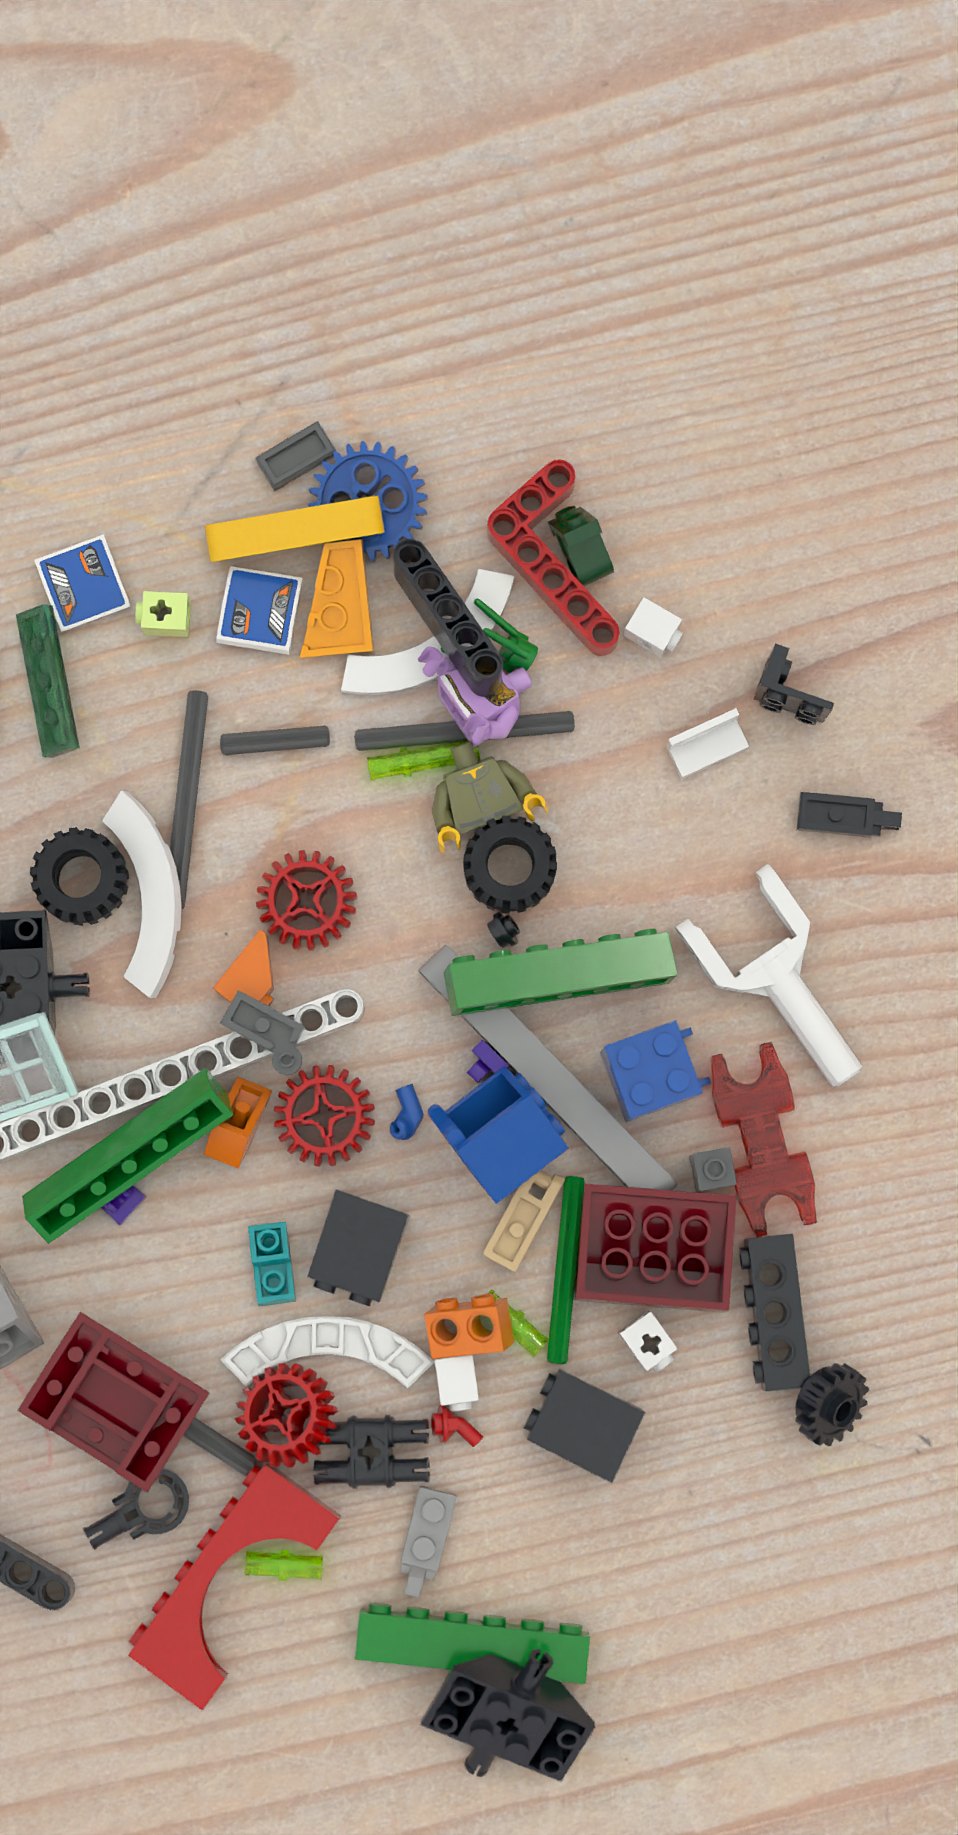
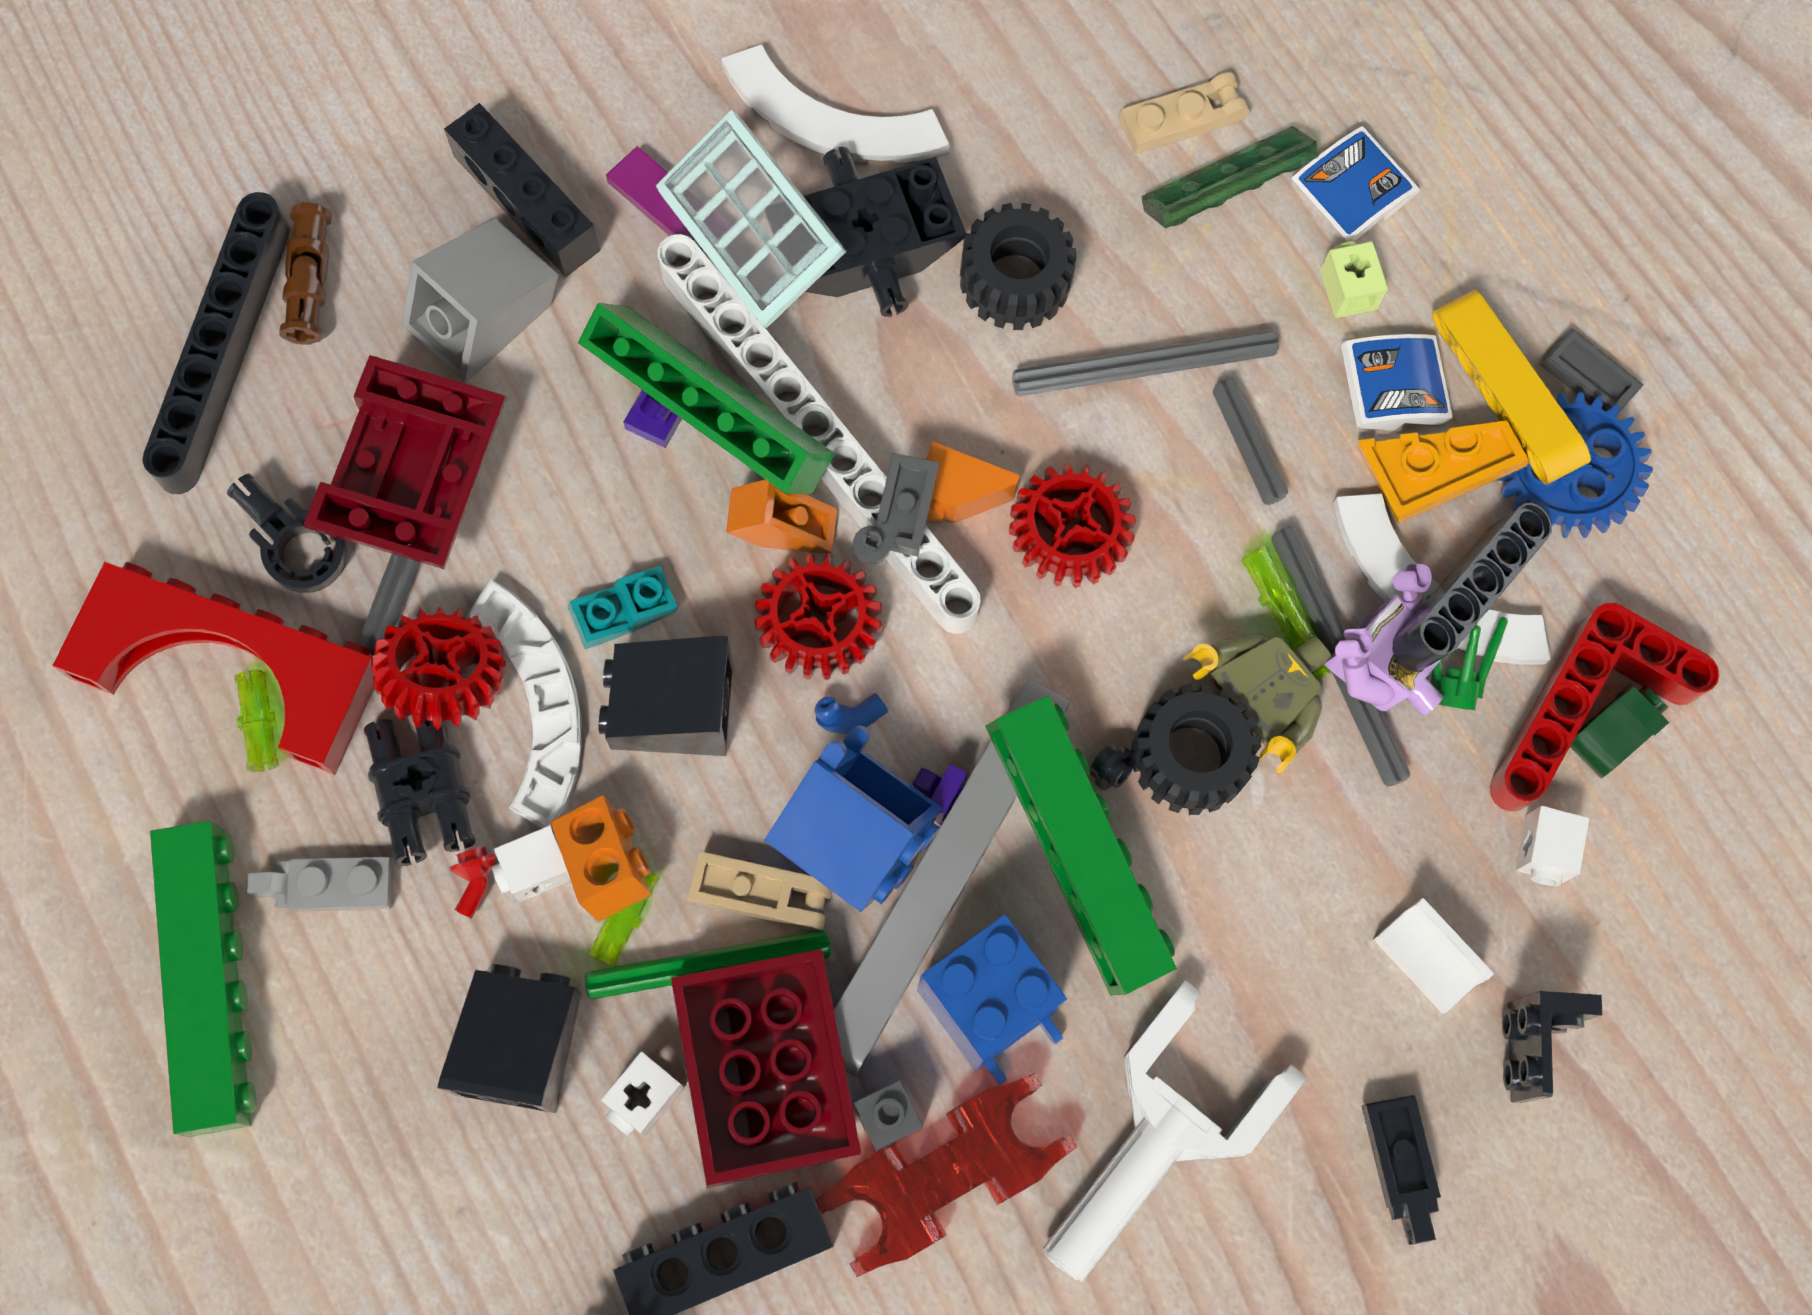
camera: 70 degrees right, 10 degrees down
(158, 890) = (1026, 357): white tile -> none
(510, 1715) = (112, 1044): black slope -> none

